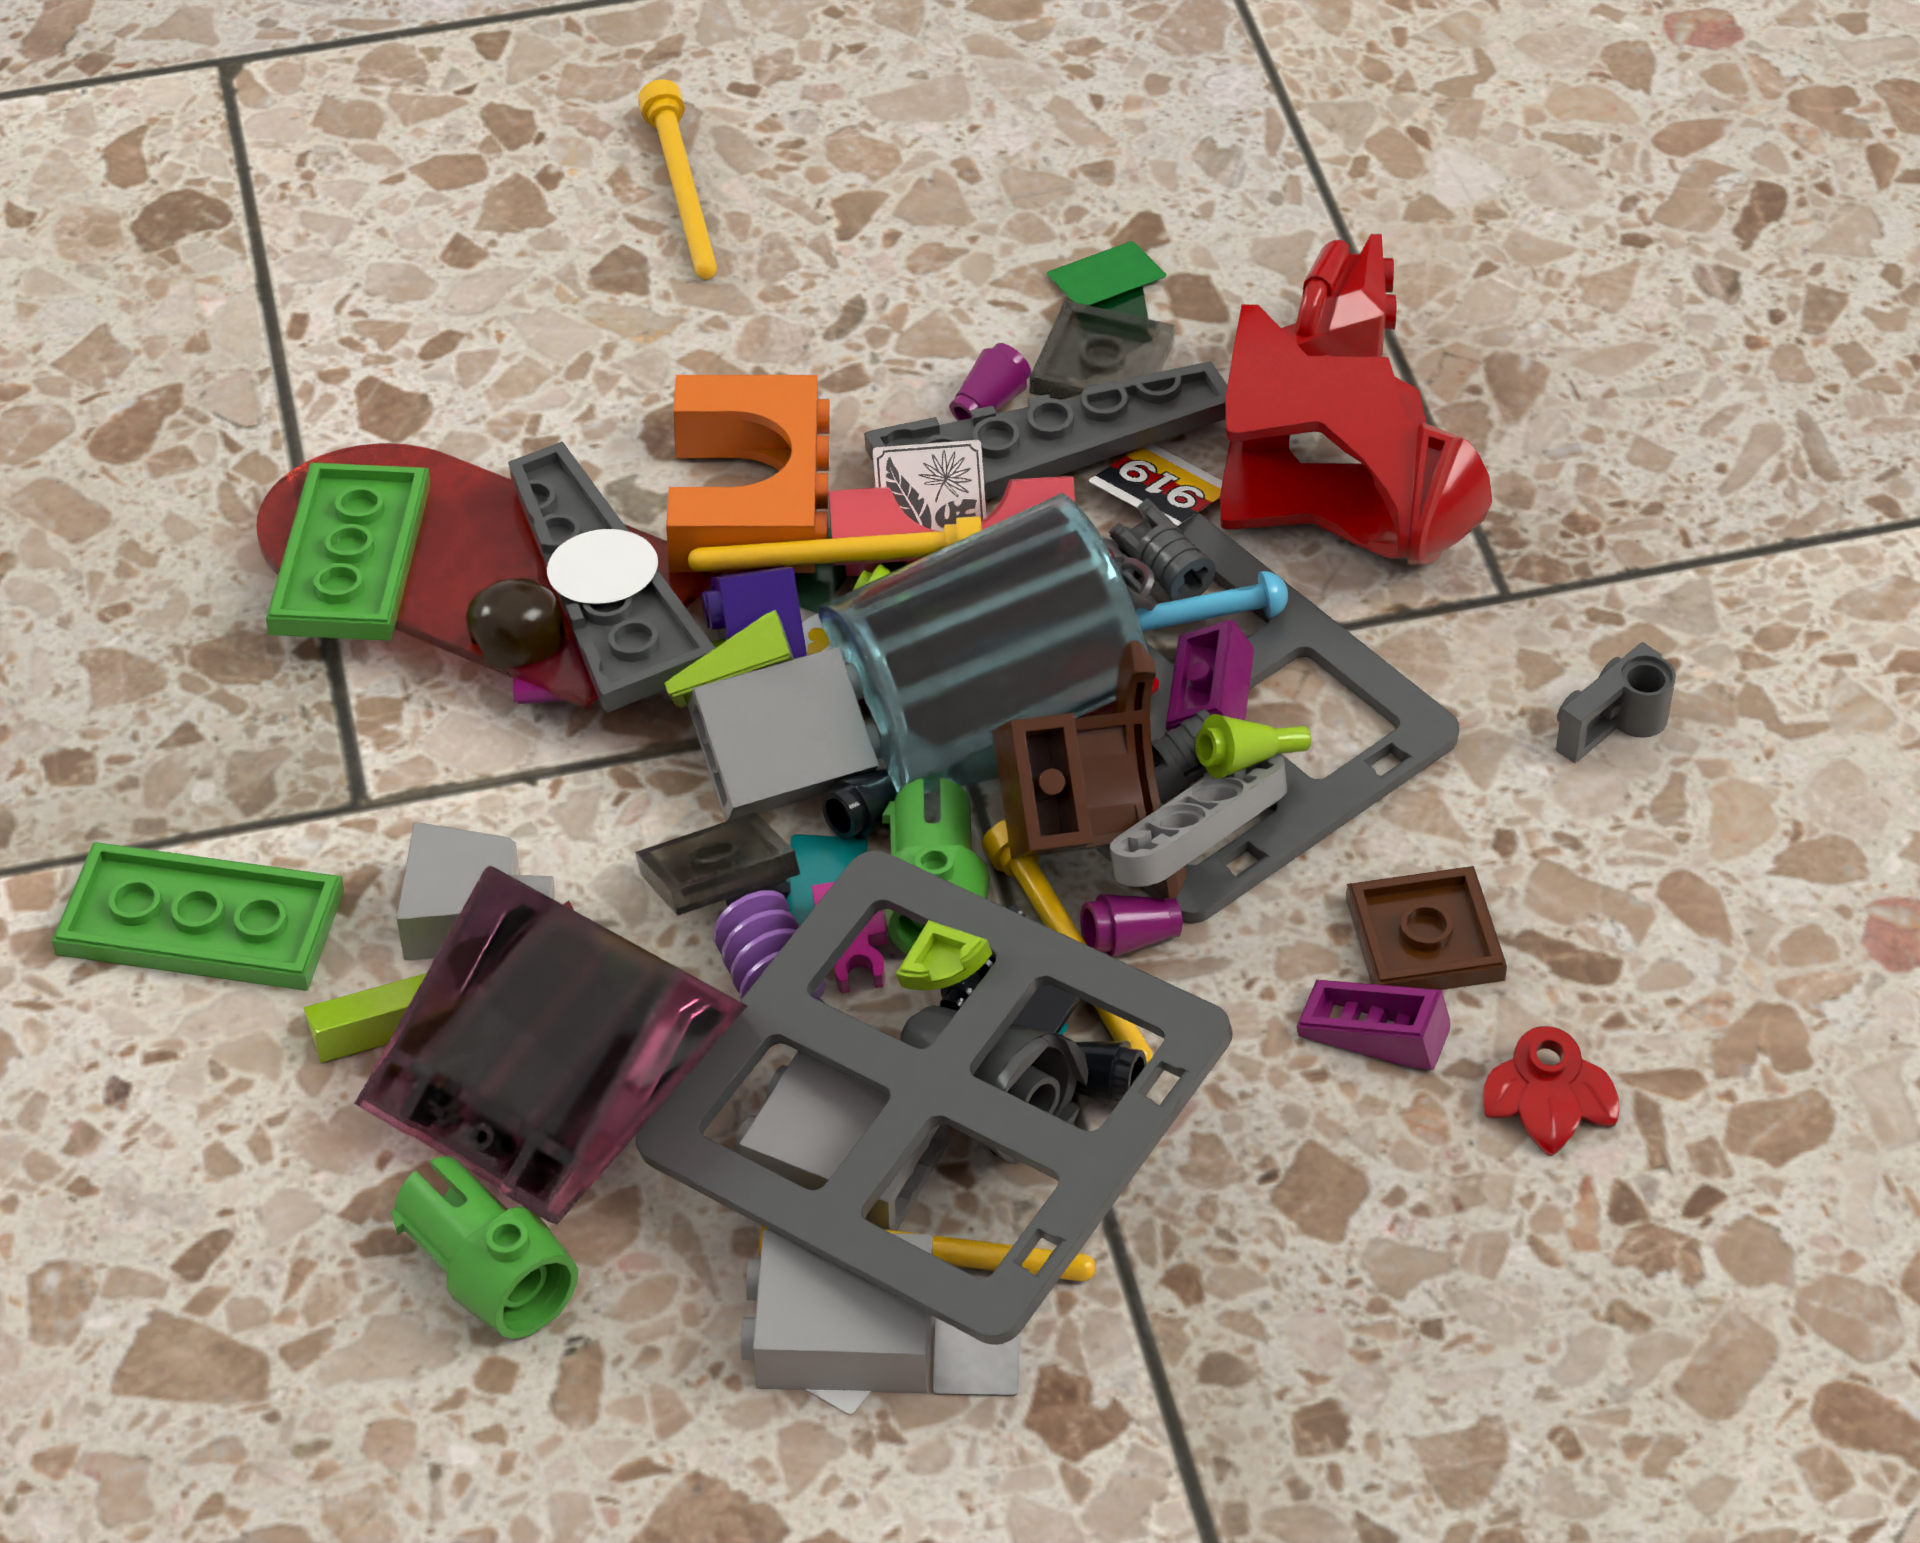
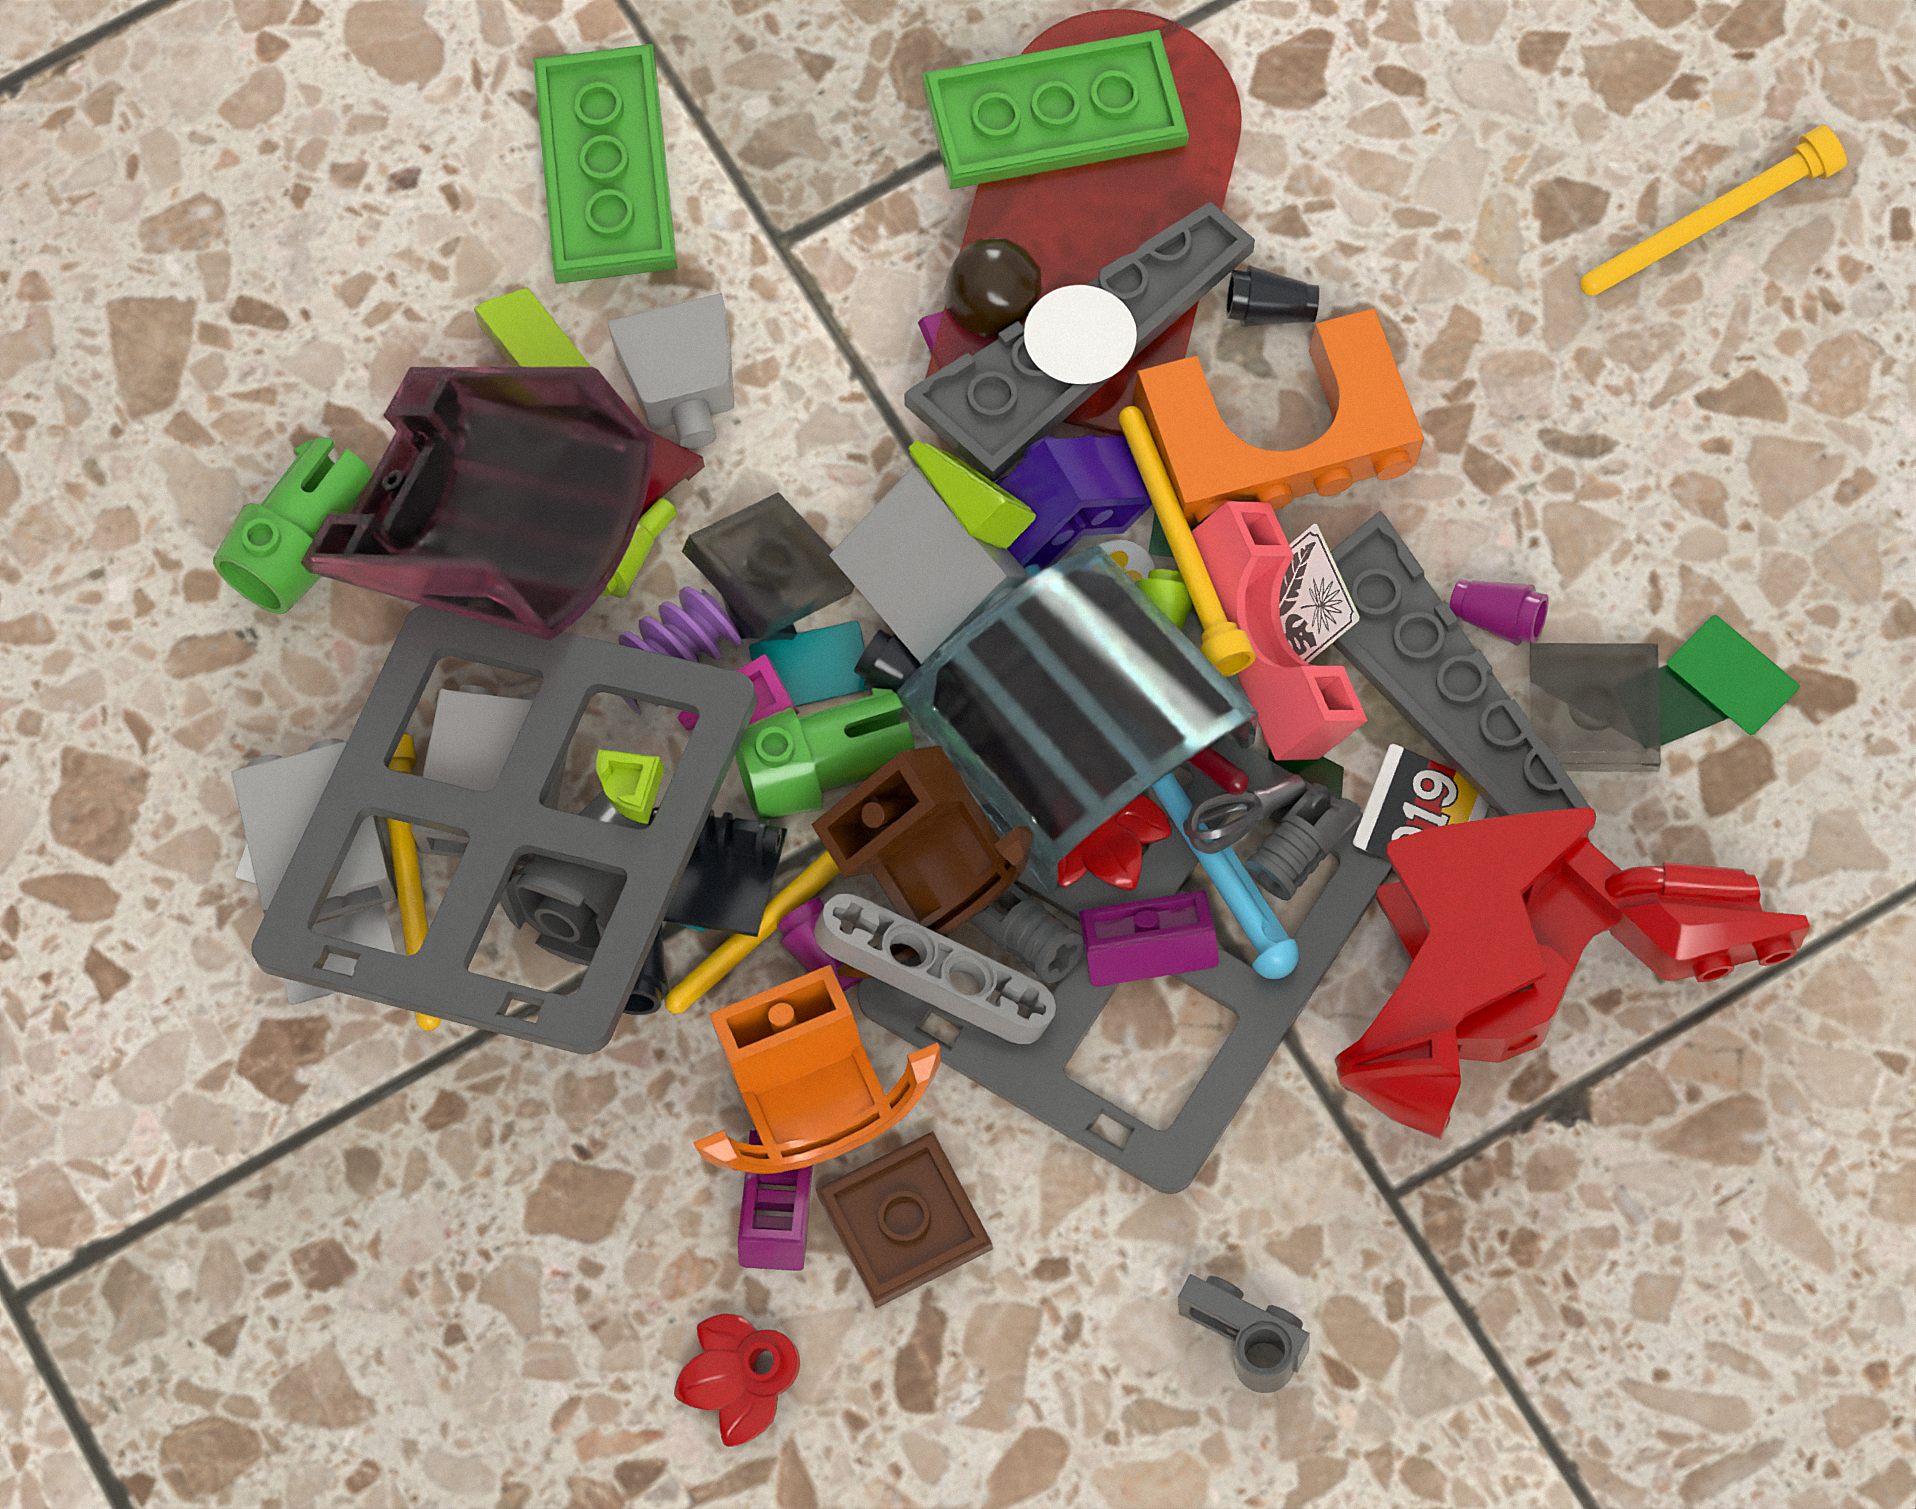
camera: 80 degrees right, 20 degrees up
(617, 461) = (1270, 298): none -> black cone
(1235, 744) = (1028, 979): lime cone -> none
(1275, 950) = (806, 1078): none -> orange piece

